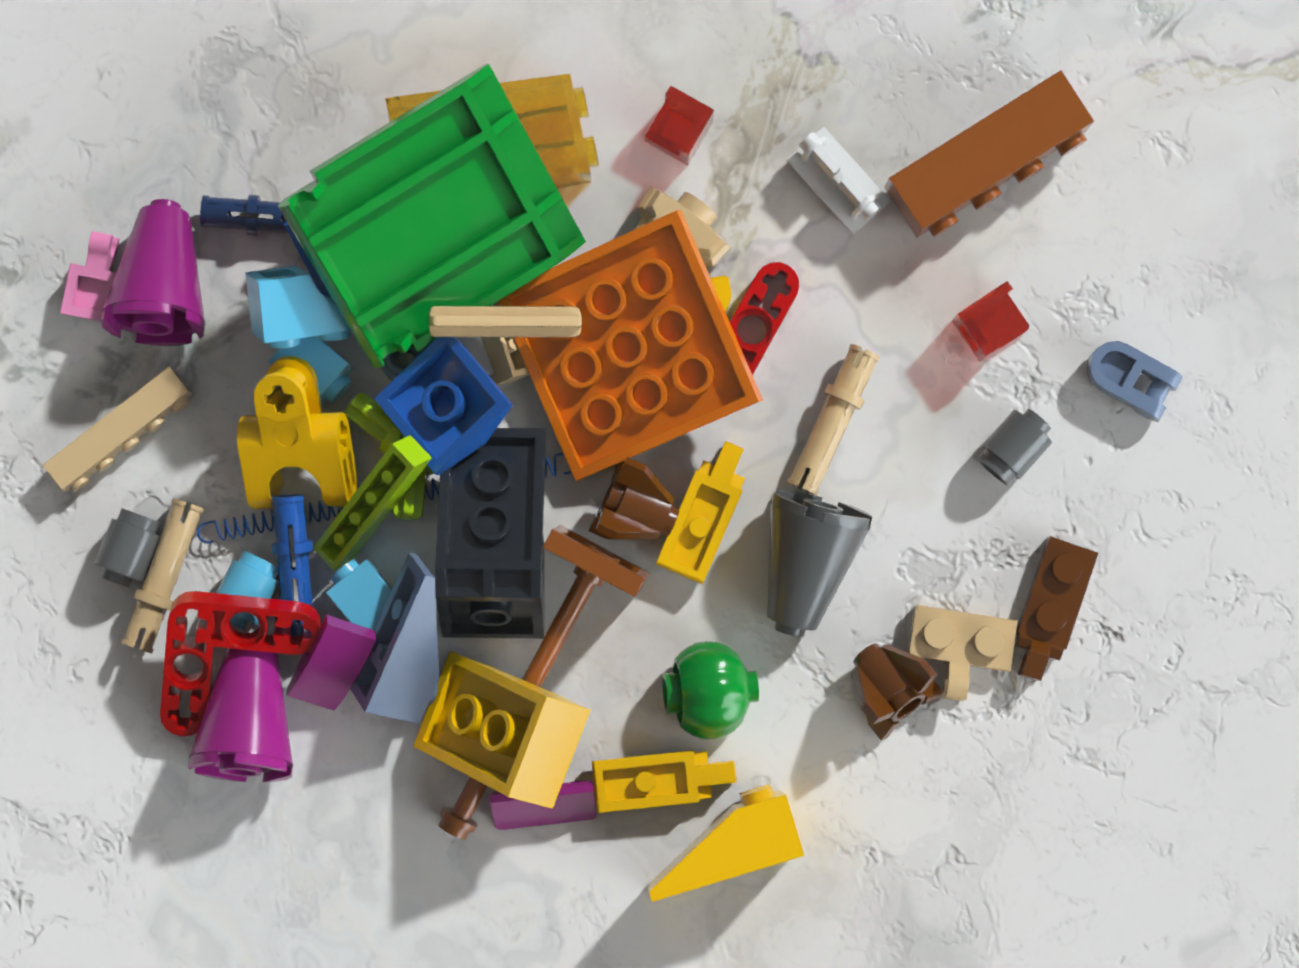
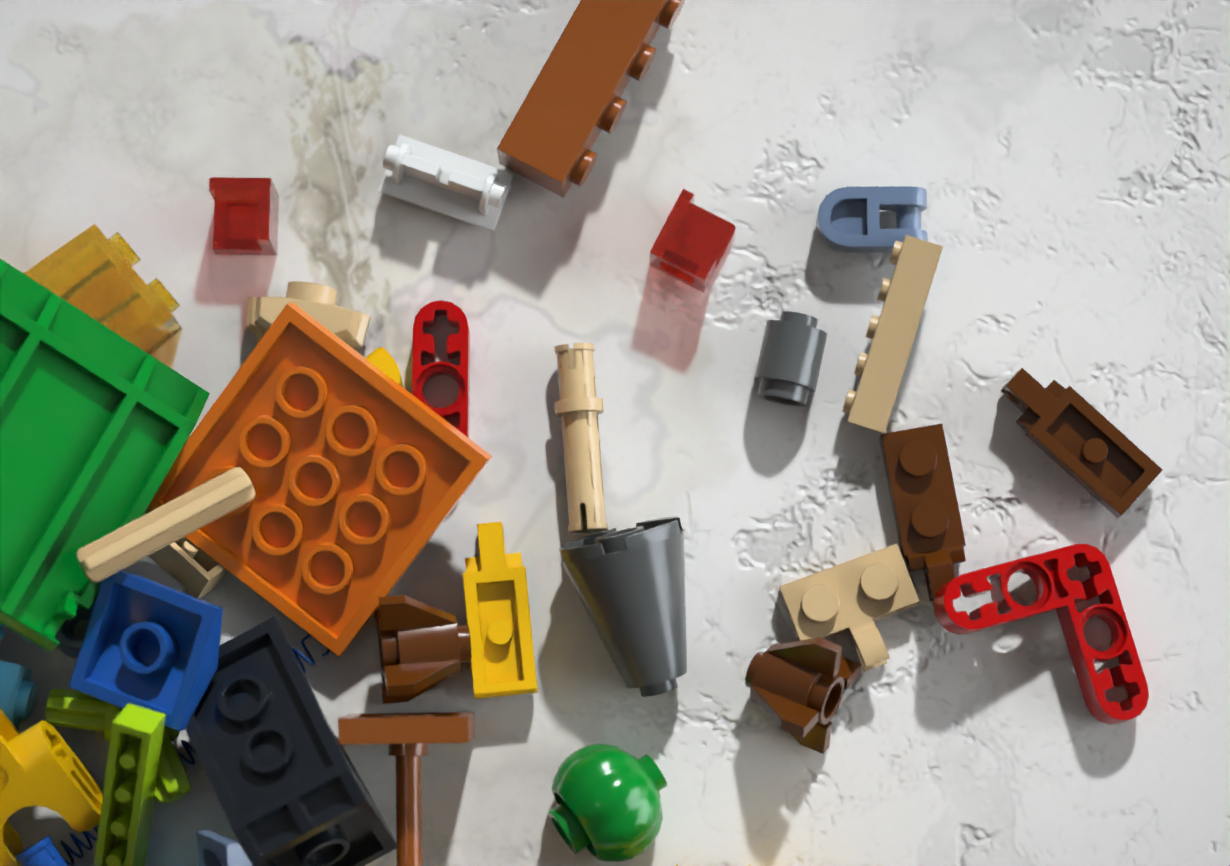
camera: 25 degrees left, 5 degrees down
(1099, 468) = (892, 333): none -> tan piece
(1114, 721) = (1059, 594): none -> red beam
(1192, 621) = (1081, 441): none -> reddish brown hinge

